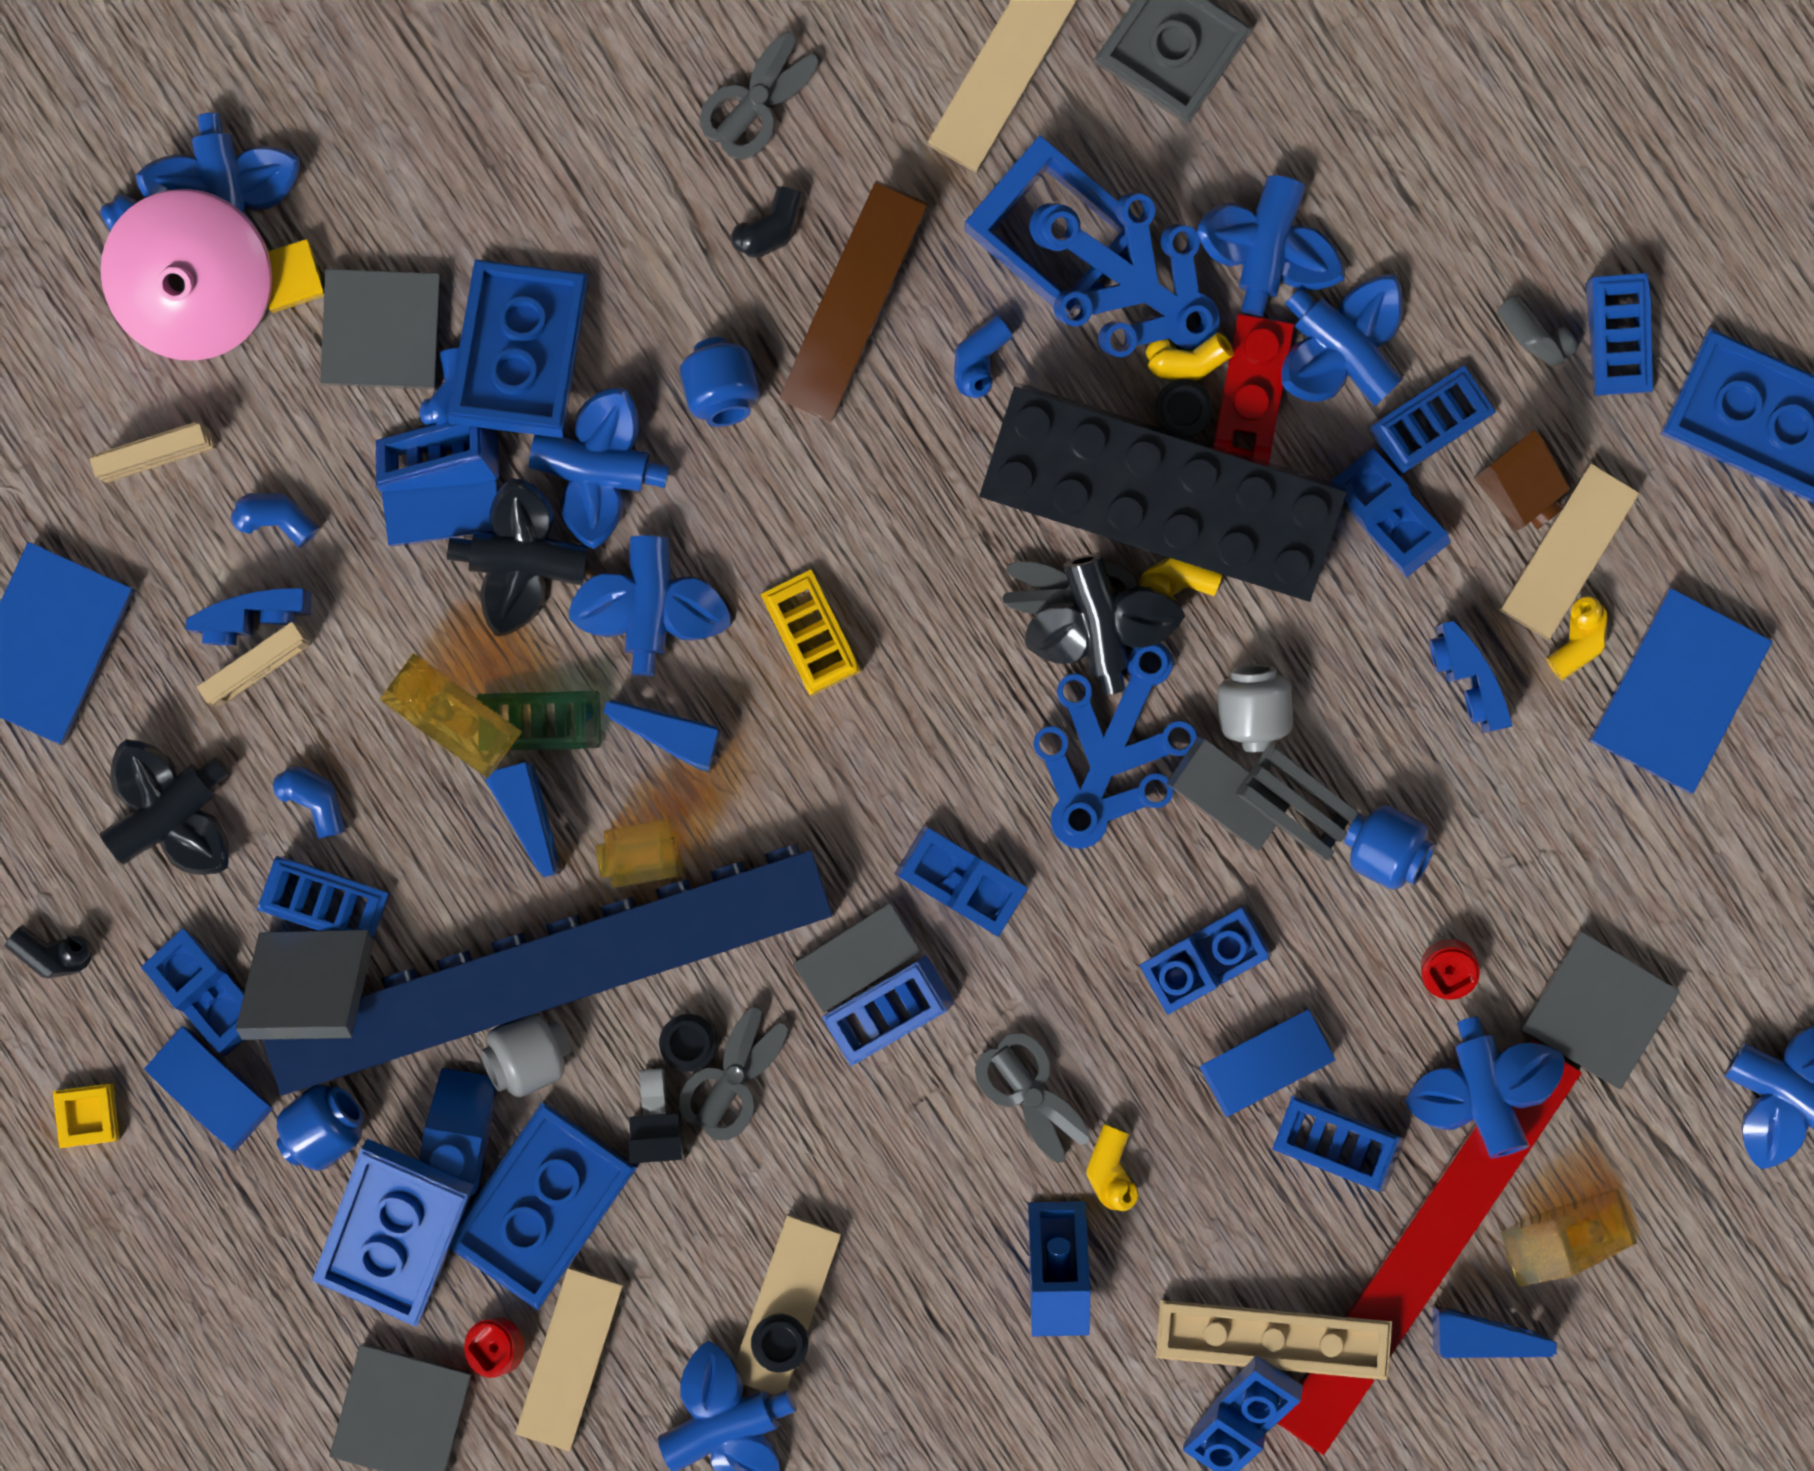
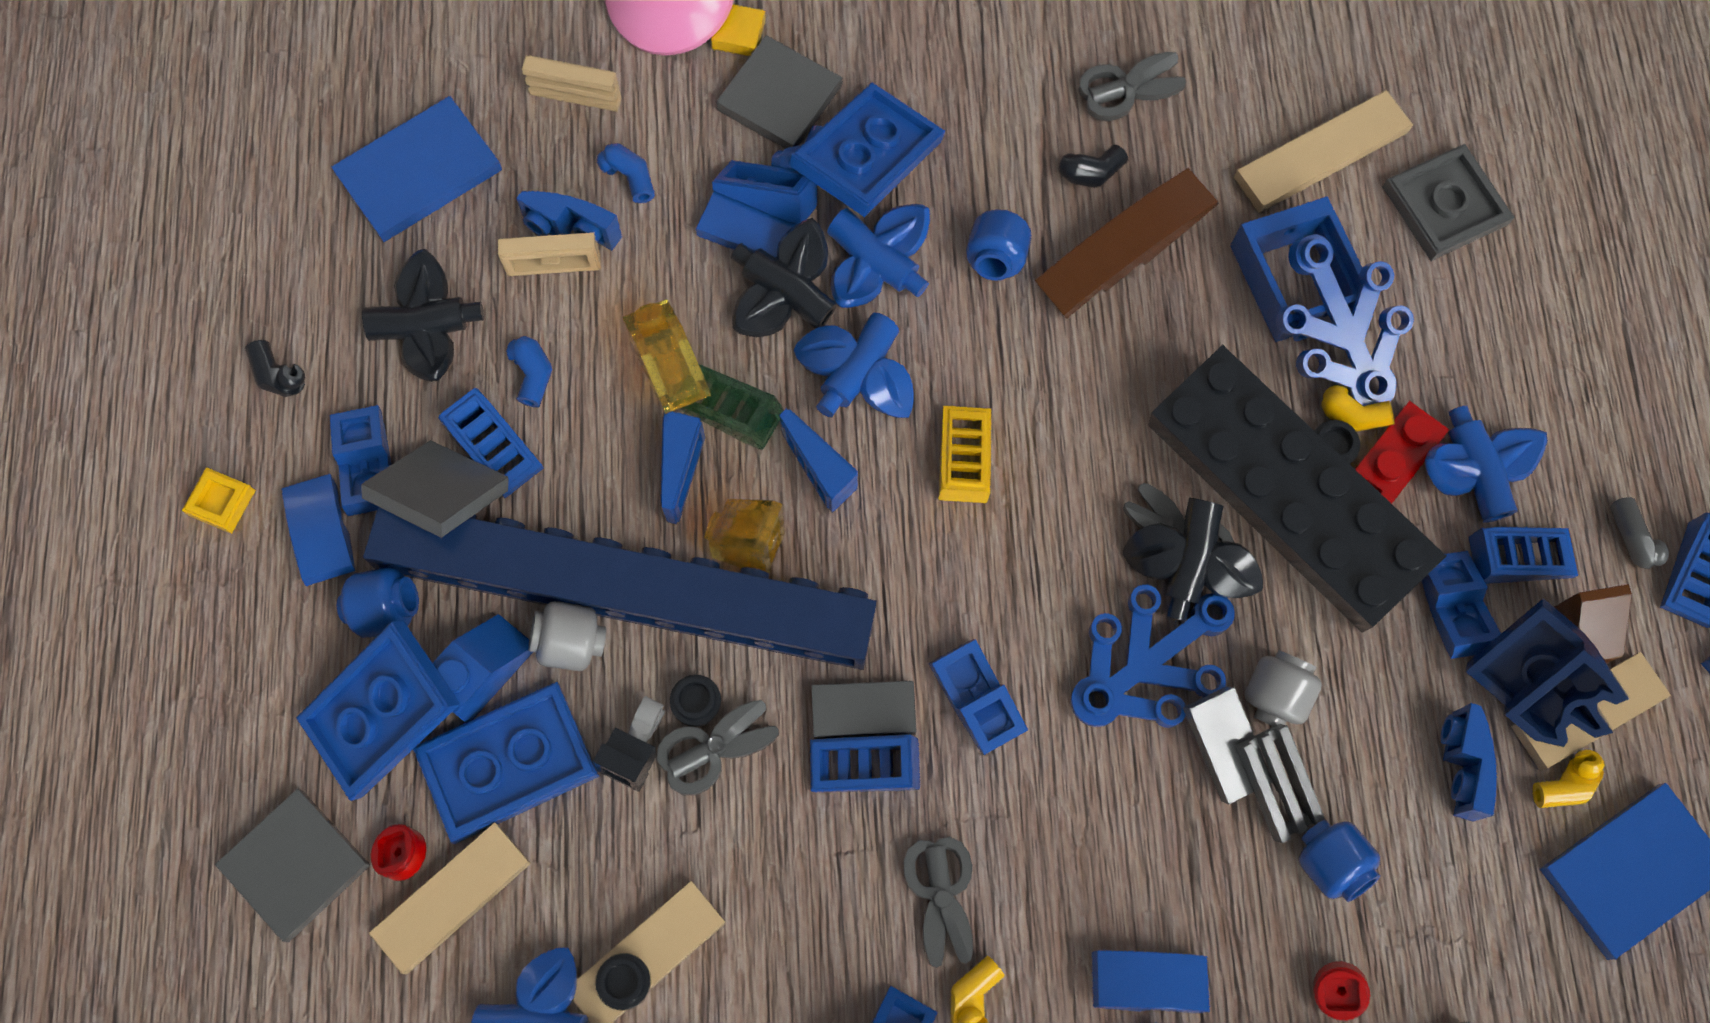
camera: 20 degrees right, 15 degrees down
(974, 357) = (1193, 328): blue arm -> none
(1174, 576) = (1276, 563): yellow arm -> none
(1205, 960) = (1140, 868): blue slope -> none
(1270, 245) = (1456, 365): blue plant -> none
(1504, 555) = (1548, 676): none -> dark blue plate

